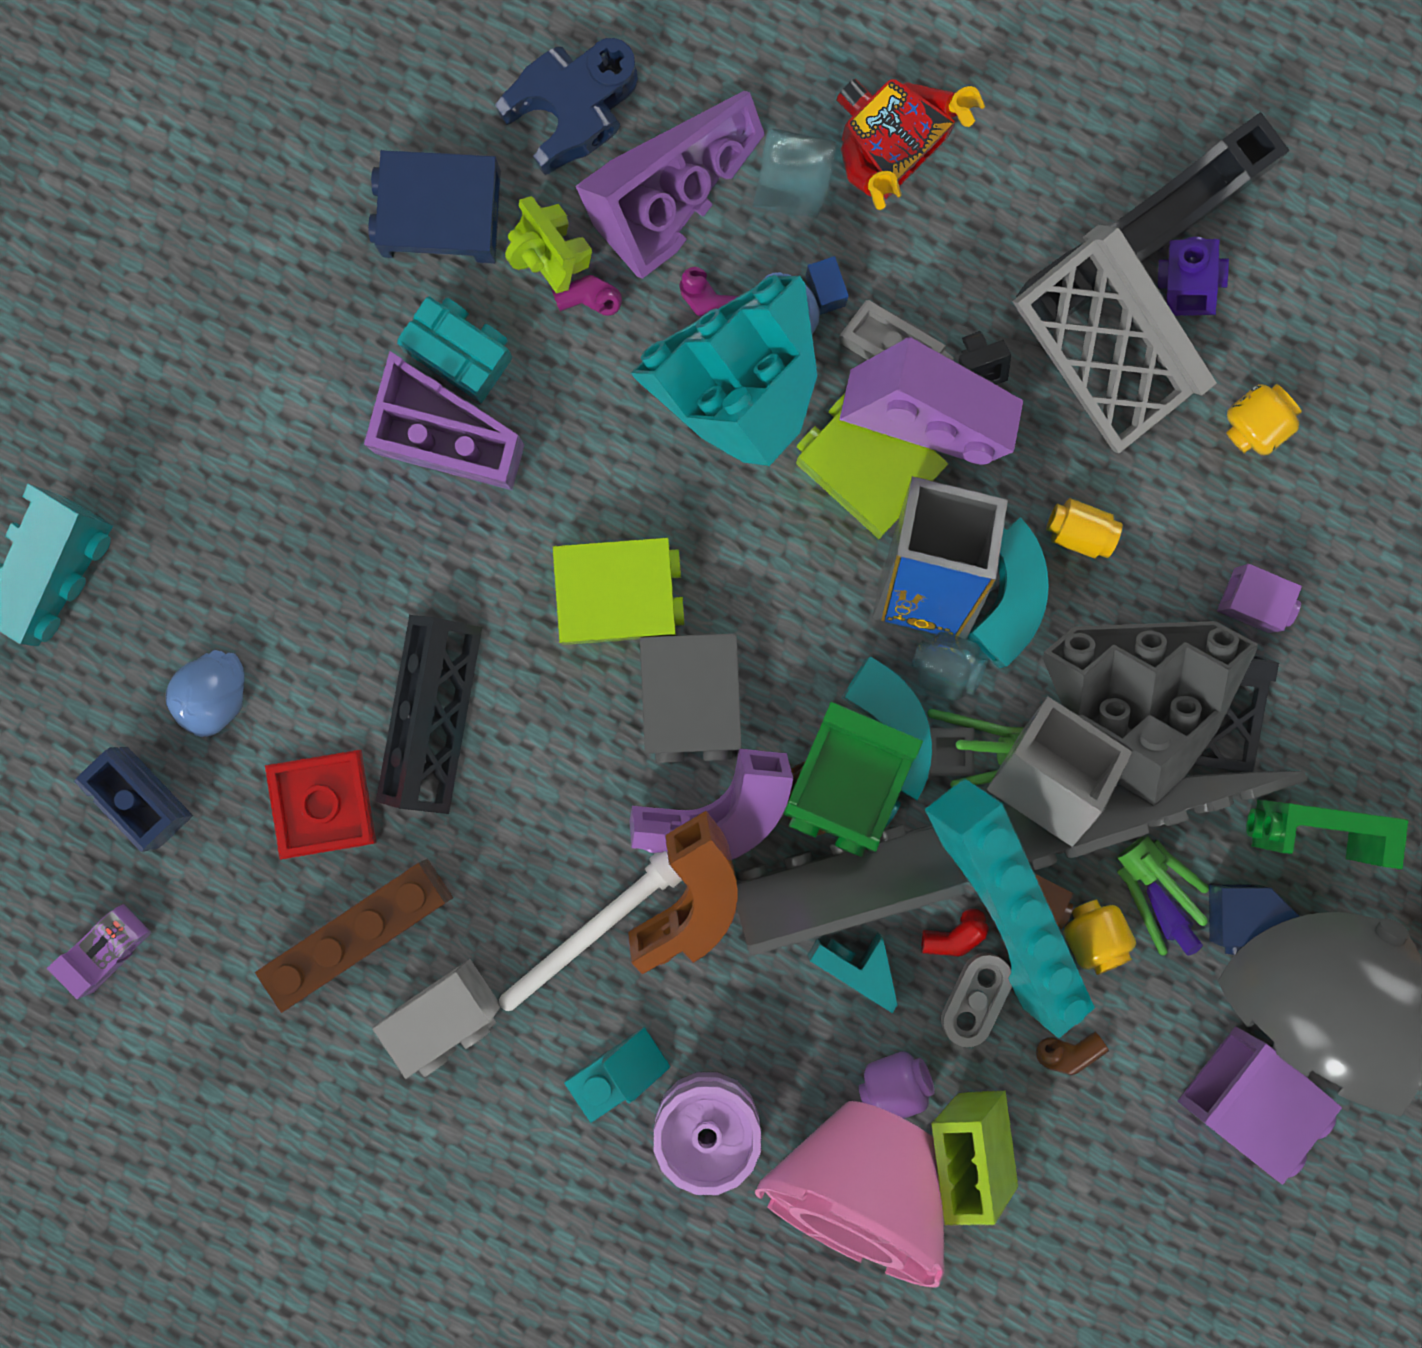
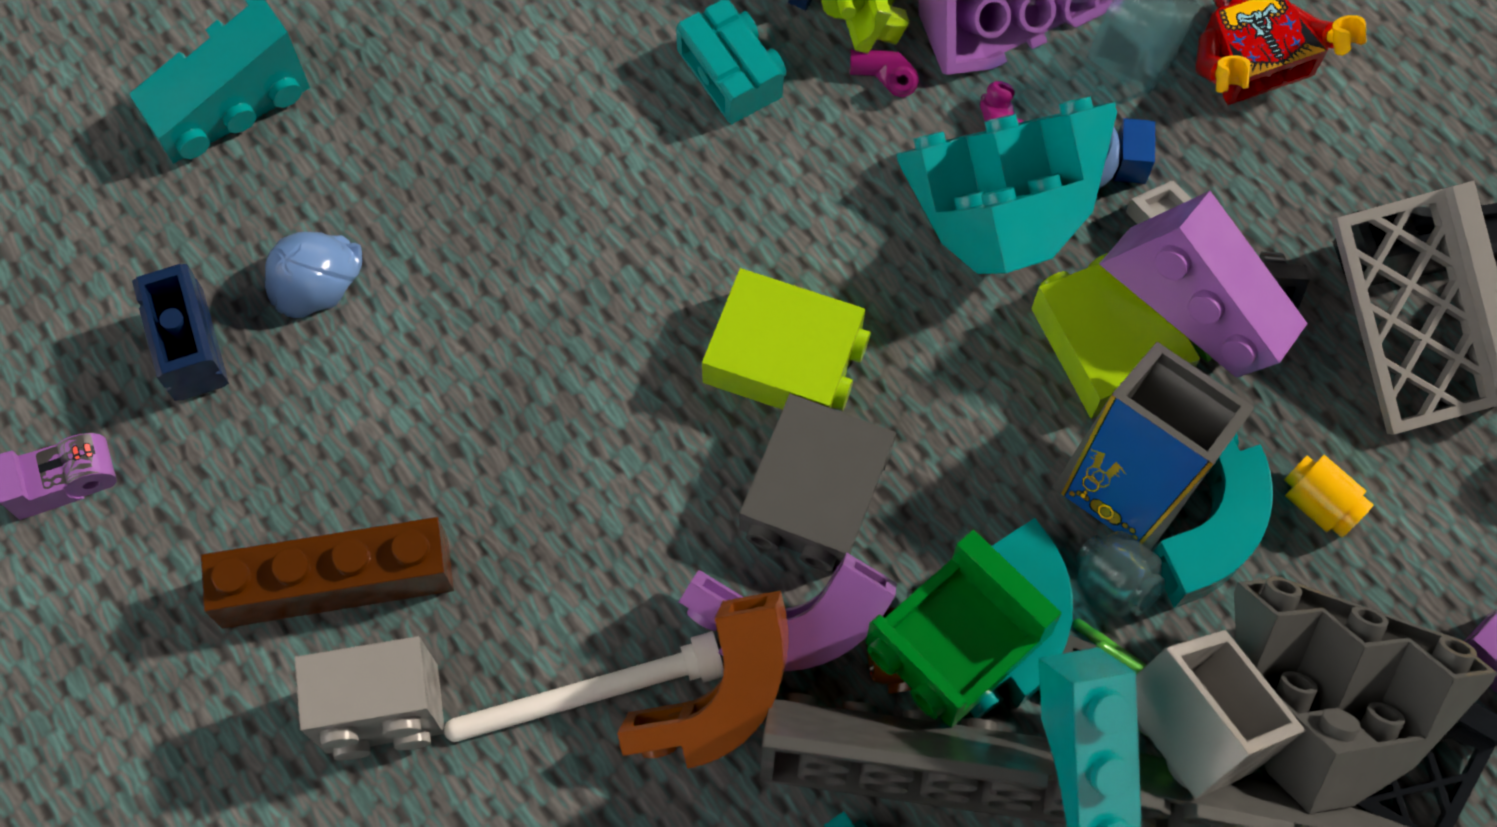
camera: 25 degrees right, 20 degrees down
(320, 804) = (365, 431): red tile -> none
(414, 710) = (513, 374): black fence -> none
(437, 430) = (678, 122): medium lavender wedge -> none

